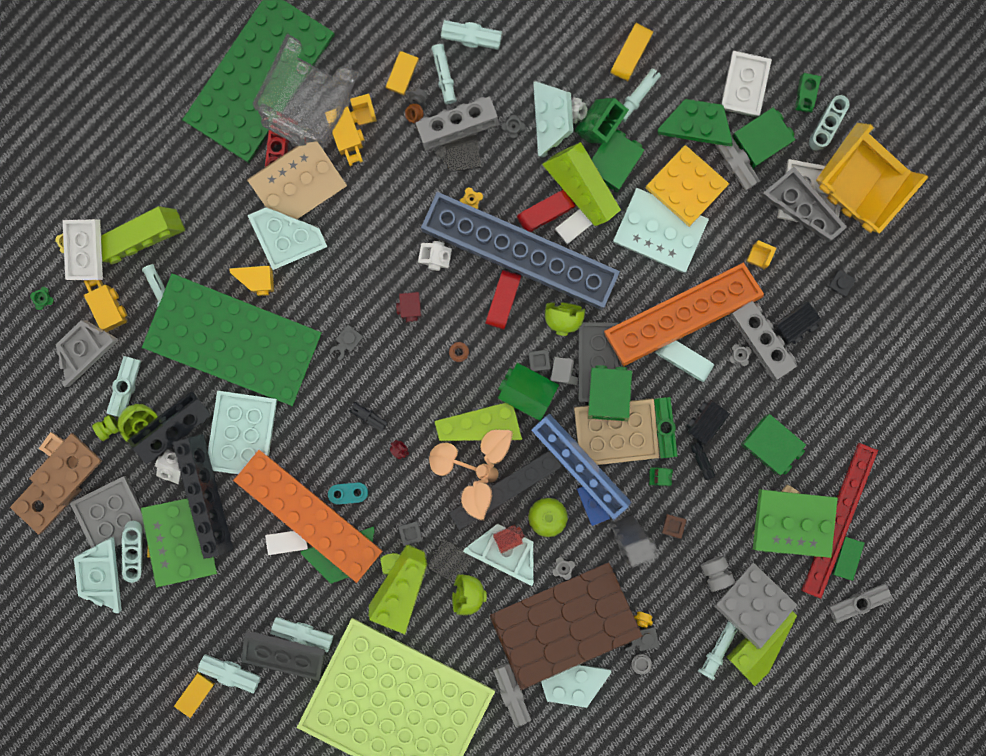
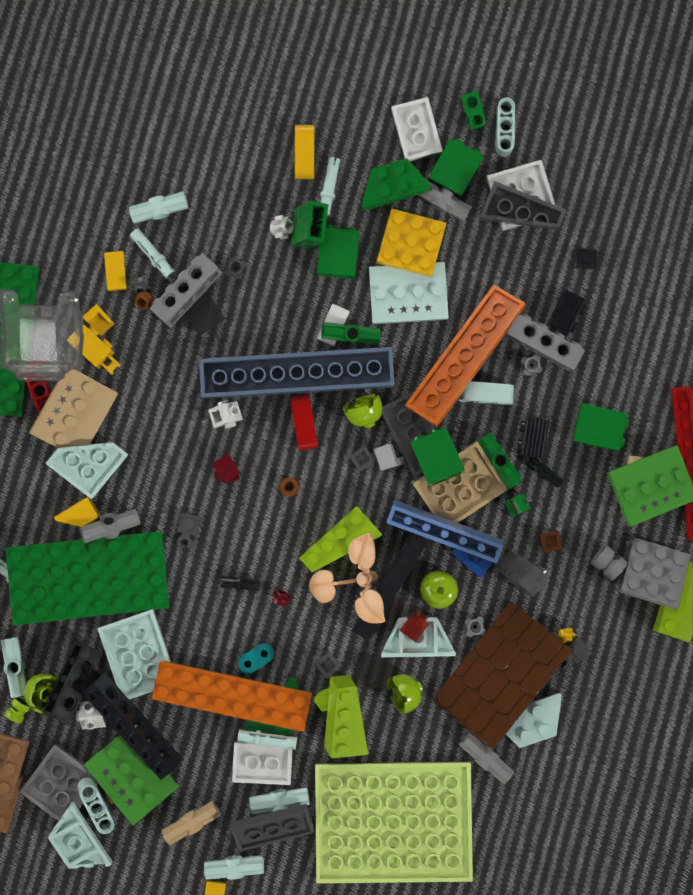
camera: 25 degrees left, 0 degrees up
(211, 612) = (191, 822): none -> tan piece
(276, 302) = (109, 526): none -> light grey piece
(285, 542) = (224, 729): white tile -> none
(304, 592) = (261, 764): none -> white plate
(312, 567) = (267, 739): none -> light aqua pin
(476, 198) = (227, 345): yellow plate -> none
(527, 391) = (365, 490): green brick -> none
(545, 211) = (301, 327): red beam -> none
(553, 116) = (265, 242): light aqua wing -> none
(578, 233) = (339, 332): none -> green piece
(583, 183) = (321, 287): lime wedge -> none
(641, 664) = (583, 674): light grey plate -> none
(715, 658) = (644, 637): light aqua pin -> none
(761, 254) = (505, 270): yellow panel -> none
(868, 180) = (563, 160): yellow windscreen -> none

